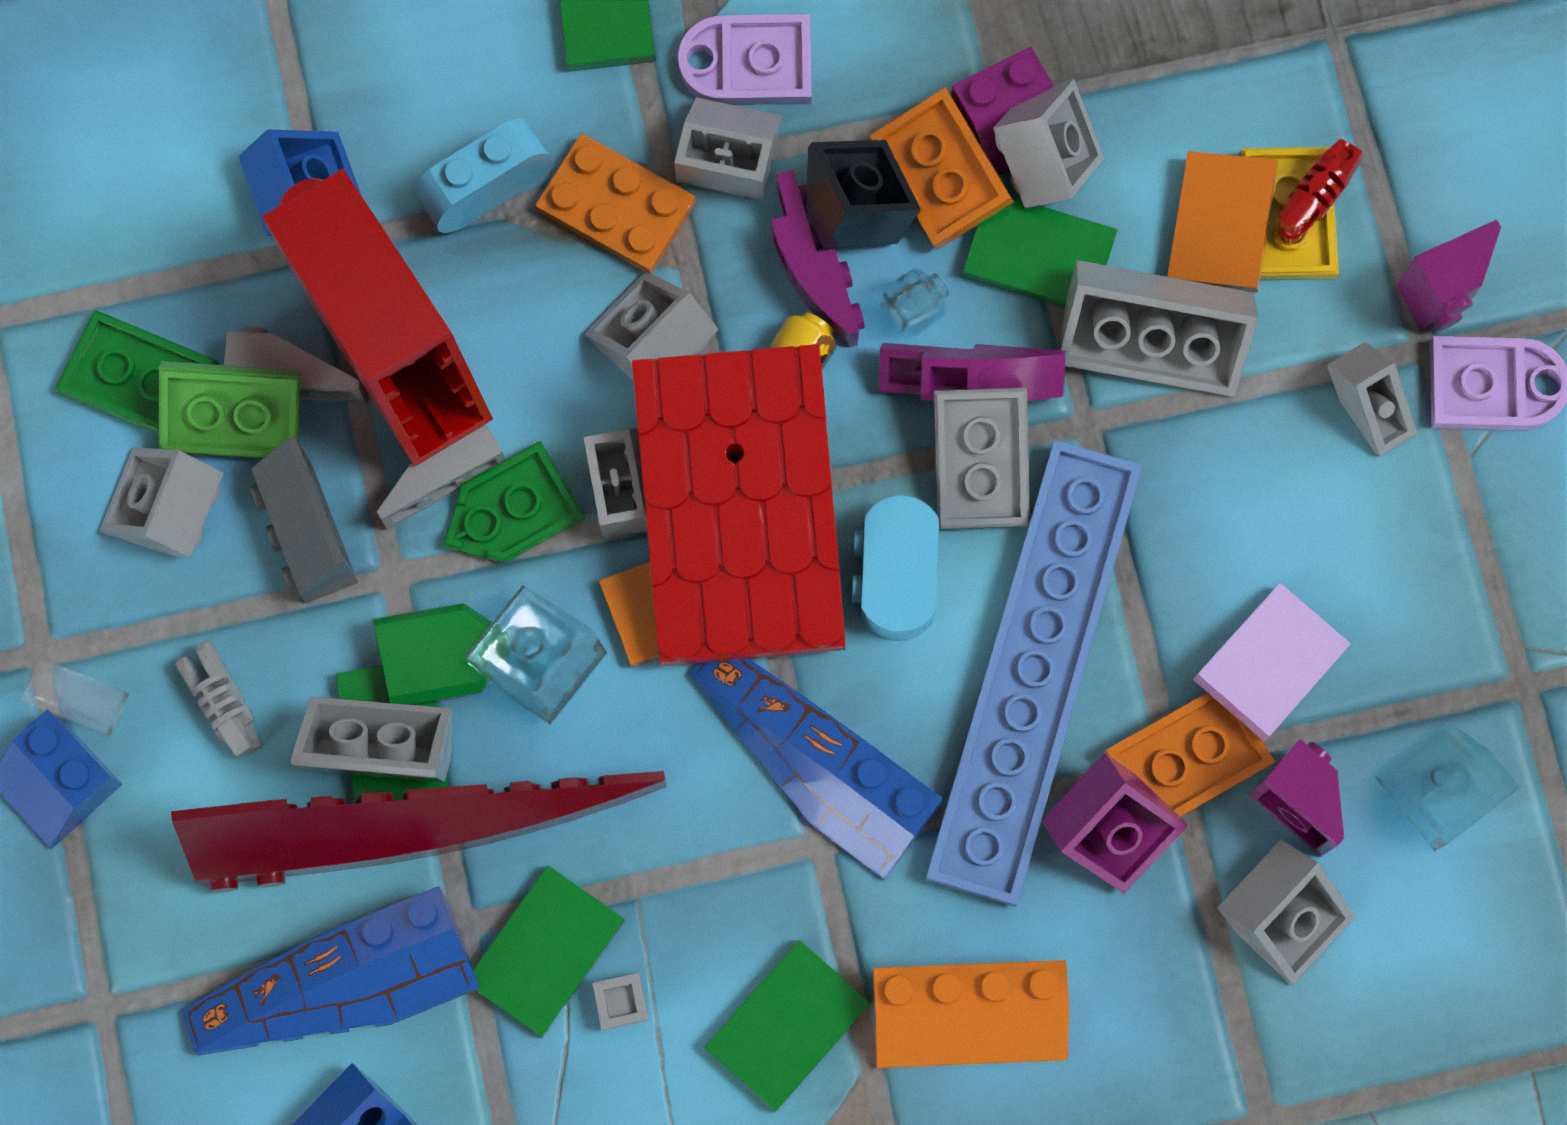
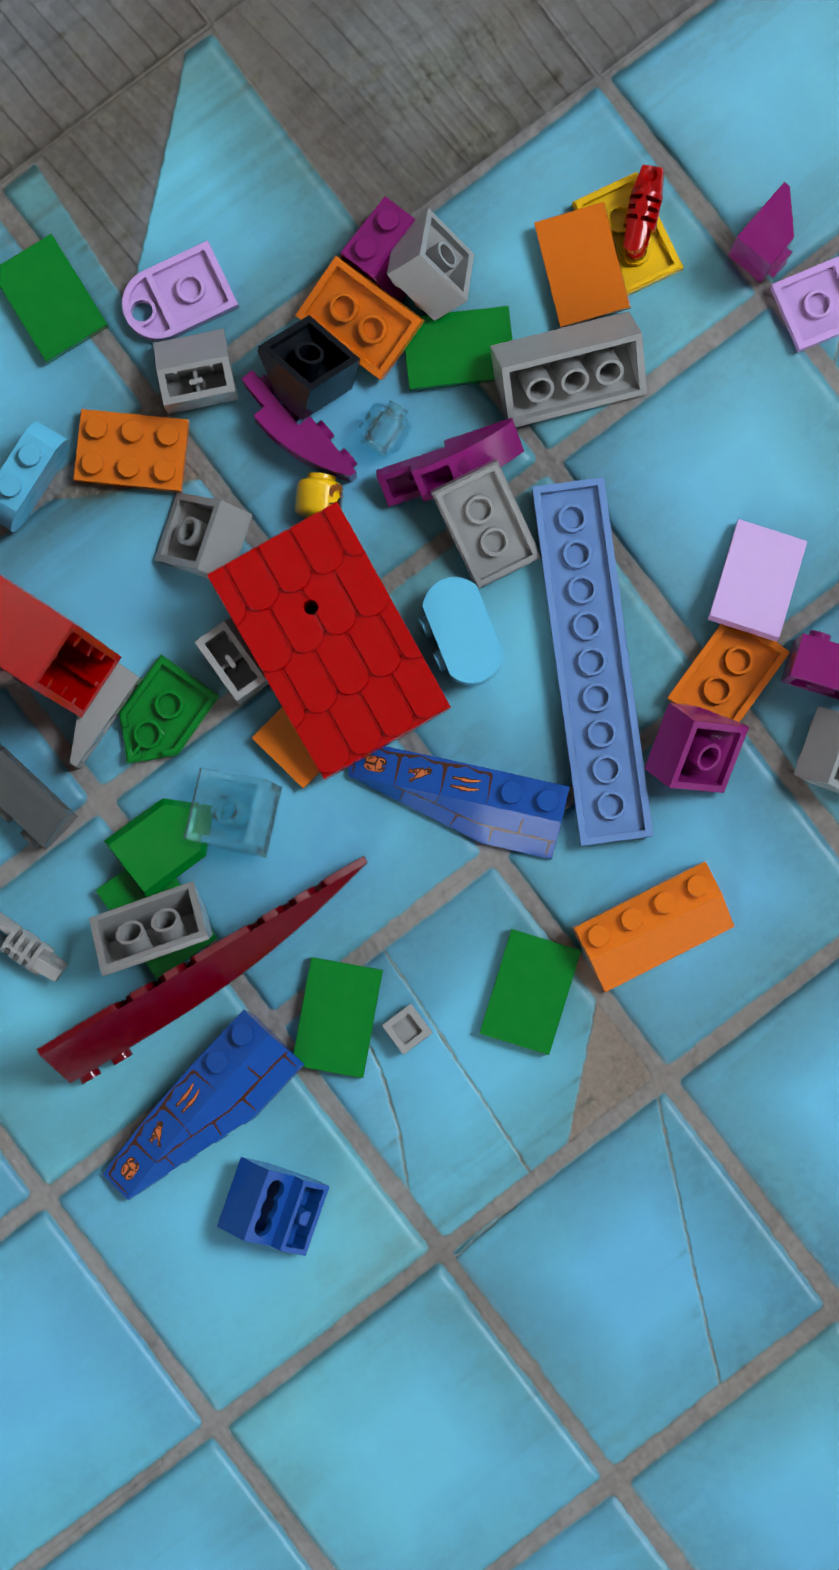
camera: 20 degrees left, 10 degrees up
(1373, 397) = (747, 350): light grey slope -> none

